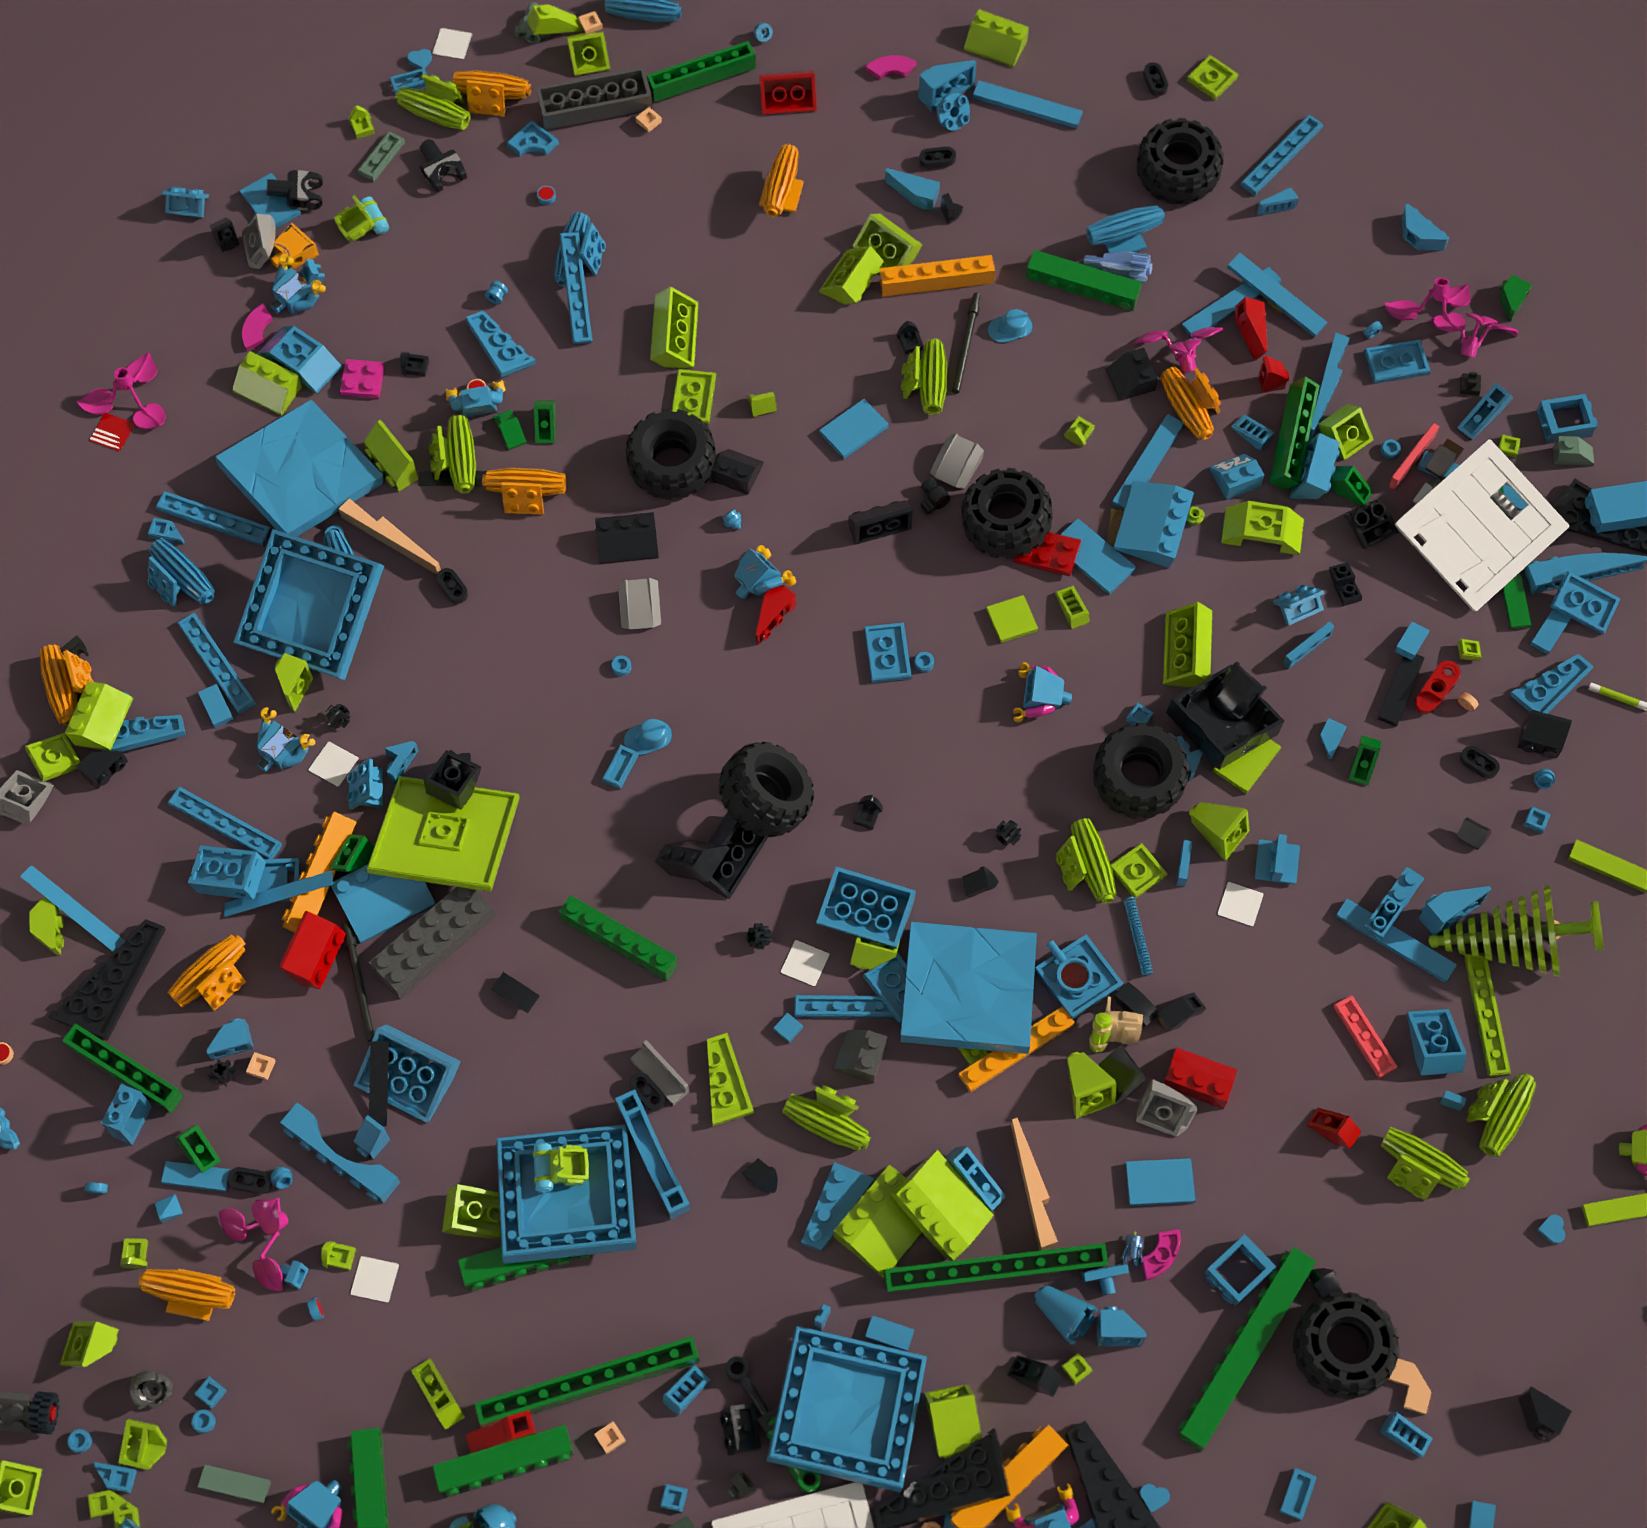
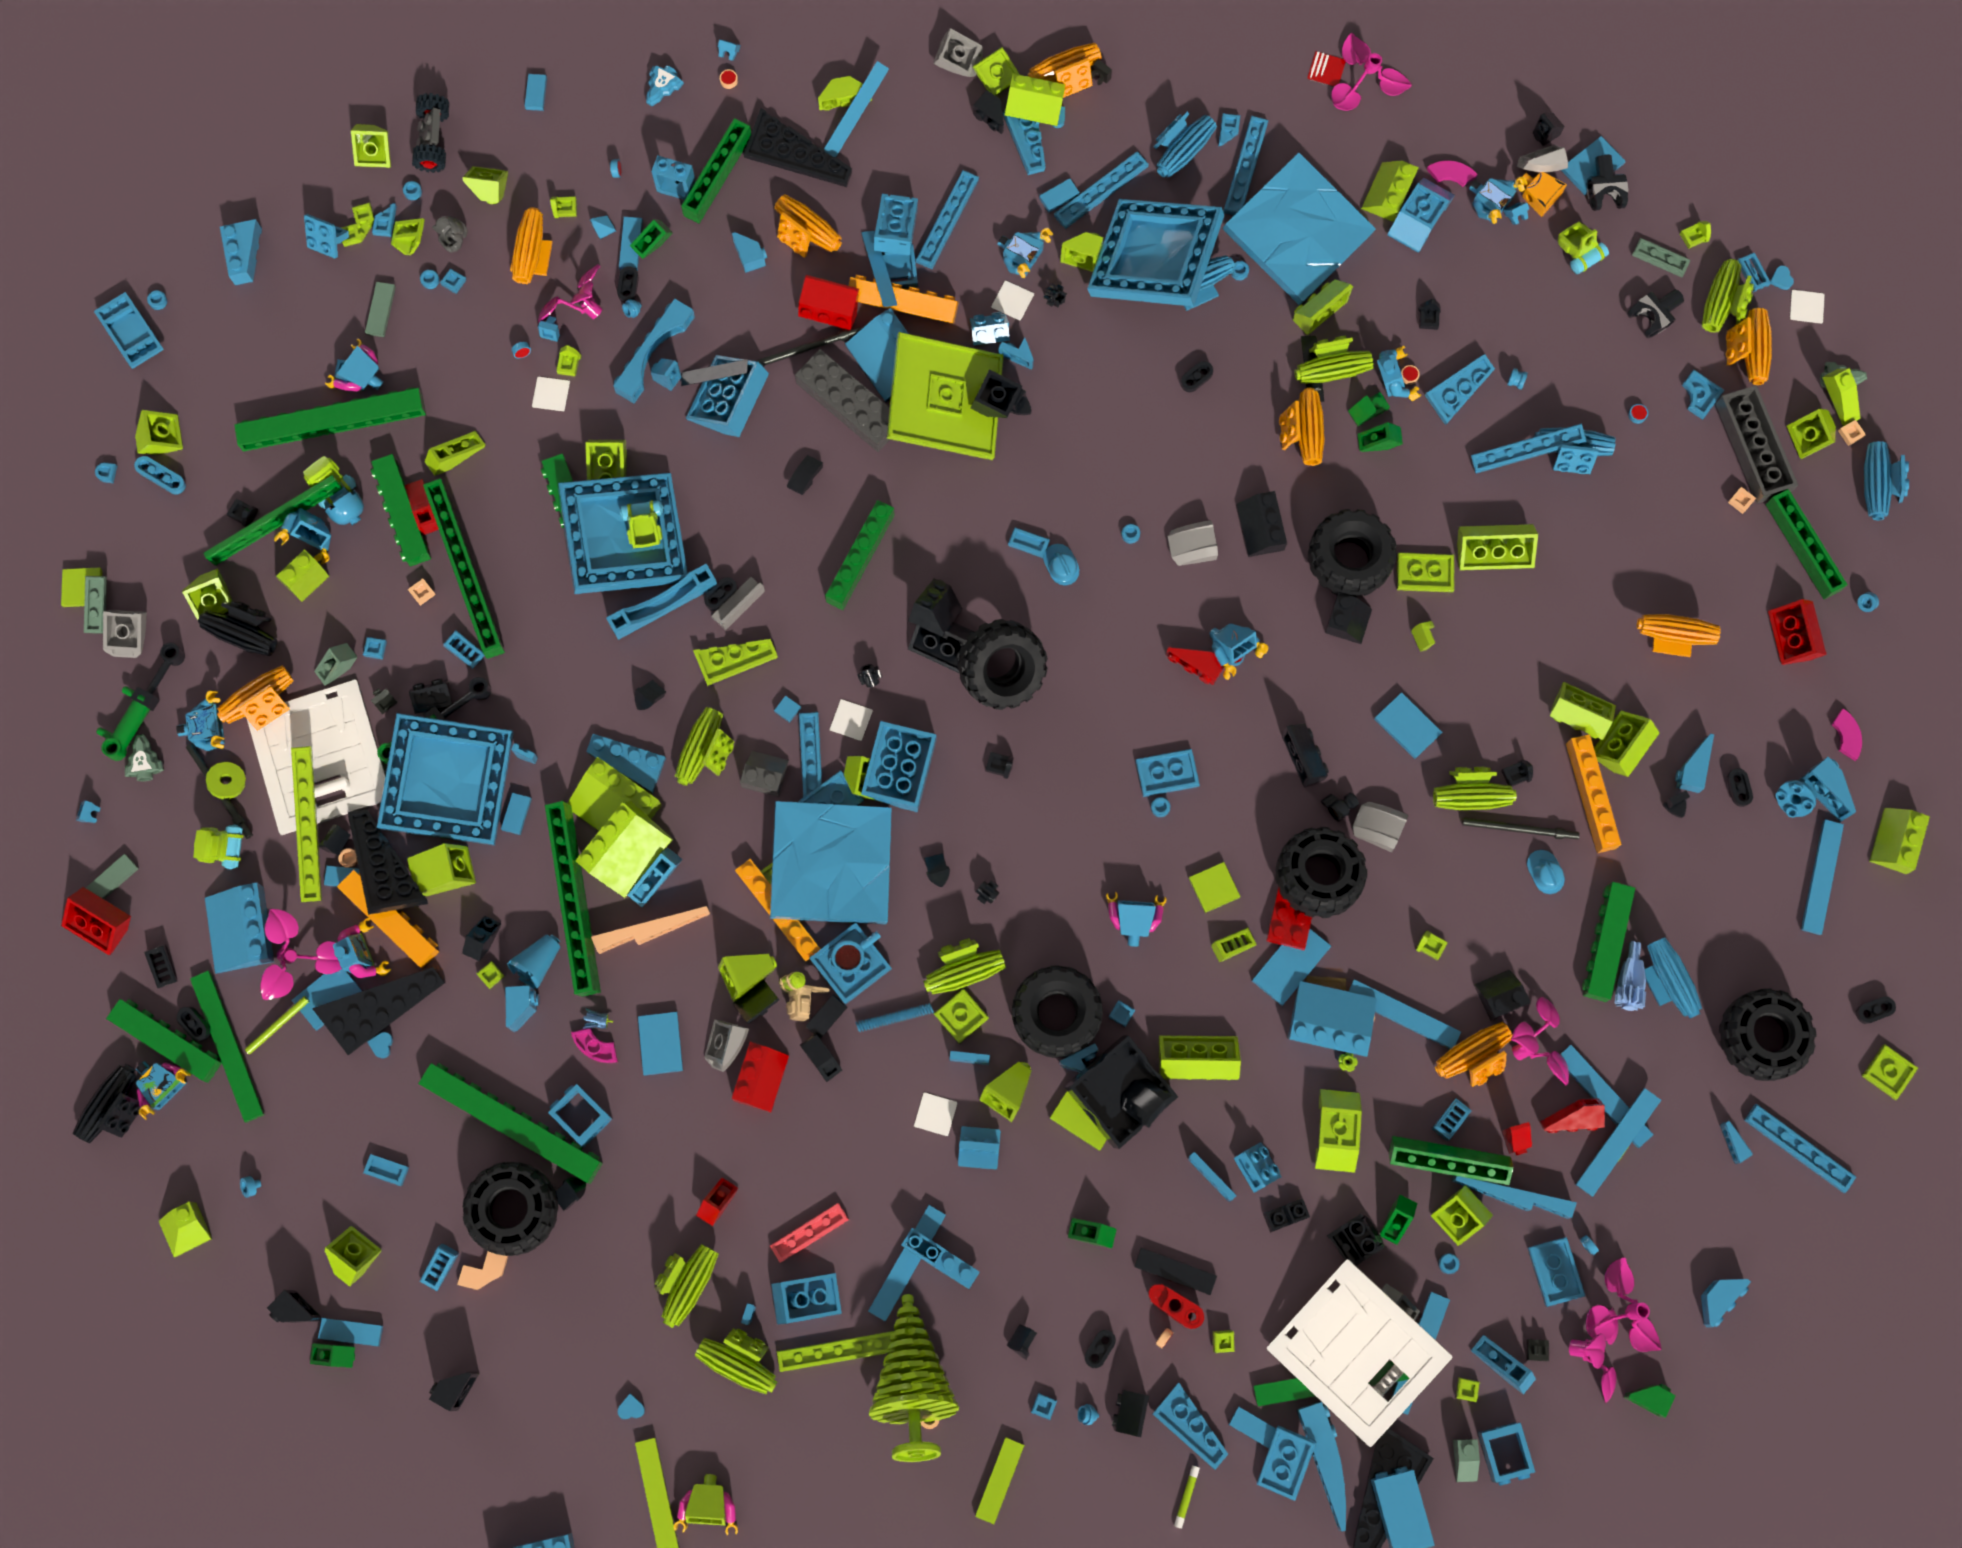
camera: 85 degrees right, 10 degrees up
(185, 202) = (1581, 89): dark azure bracket -> none
(227, 1073) = (719, 244): black gear -> none
(260, 1066) = (727, 279): light nougat plate -> none
(353, 854) = (918, 322): green slope -> none
(362, 379) = (1408, 272): dark pink plate -> none
(387, 534) = (1244, 314): light nougat slope -> none
(732, 519) = (1293, 618): dark azure plate -> none
(1105, 1276) = (574, 1001): dark azure tile -> none
(1237, 475) = (1398, 1103): dark azure slope -> none
(1317, 468) = (1410, 1182): dark azure slope -> none
(1331, 736) = (1116, 1201): dark azure tile -> none
(1412, 641) = (1227, 1282): dark azure tile -> none
(1413, 456) = (1440, 1286): coral tile -> none
(1444, 458) = (1440, 1318): dark brown slope -> none
(1451, 907) = (935, 1309): dark azure slope -> none

